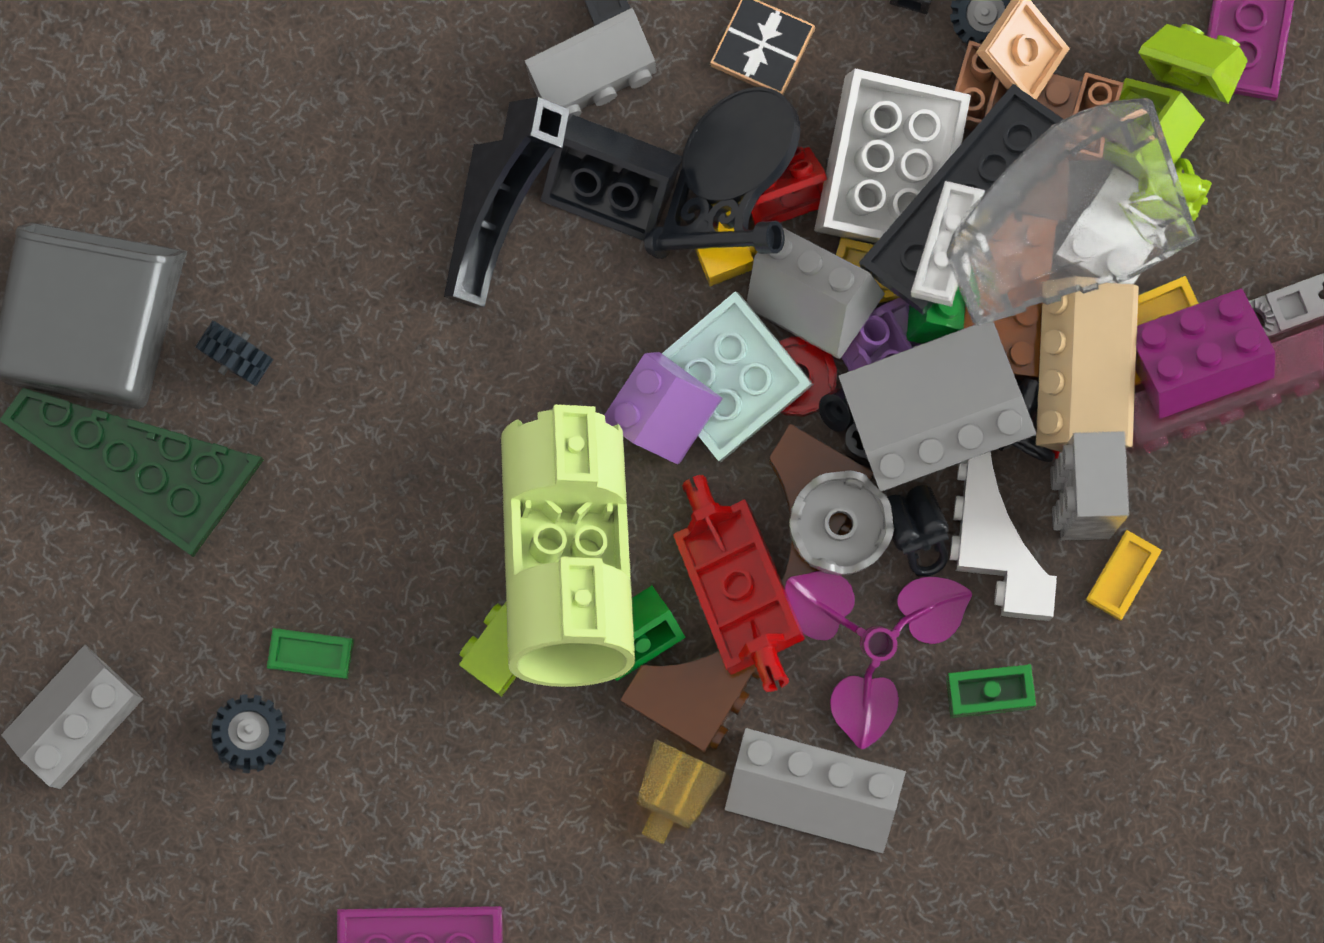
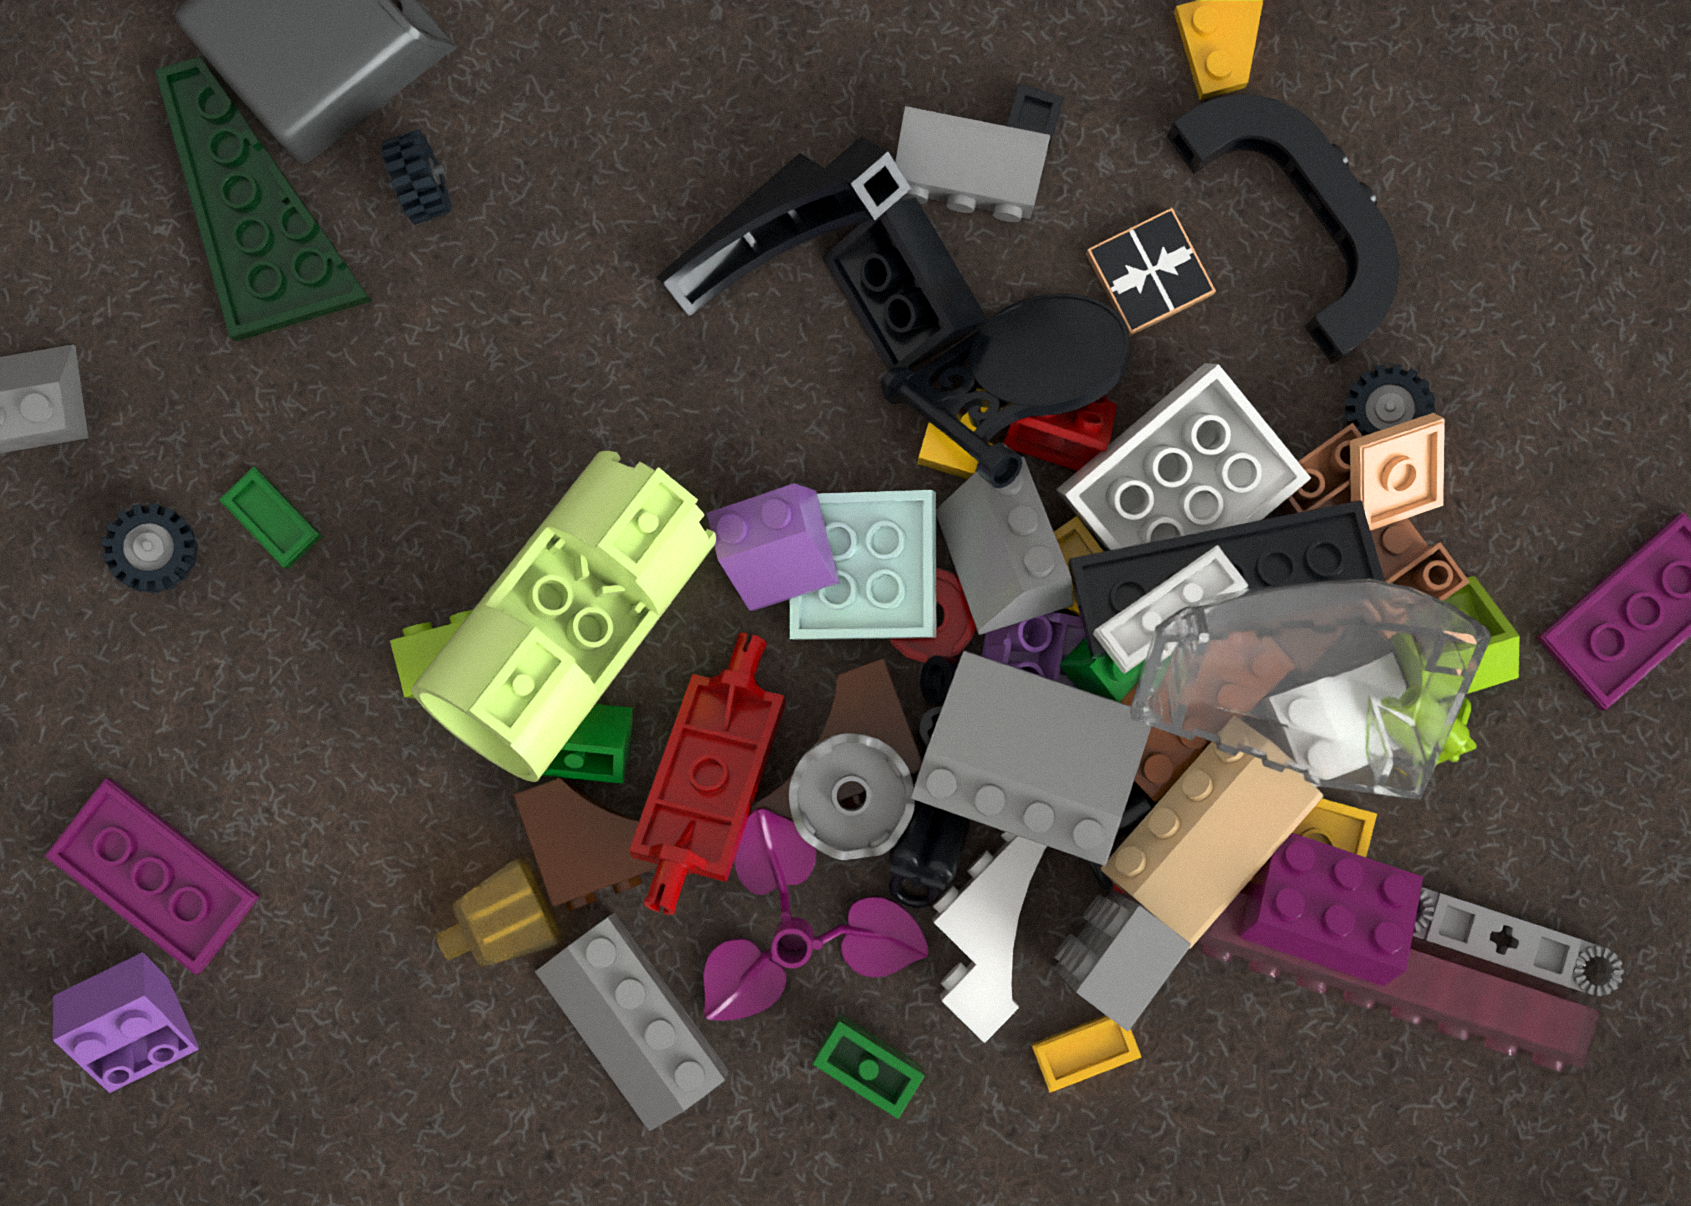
camera: 30 degrees right, 5 degrees up
(1195, 61) = (1556, 614): lime slope -> none

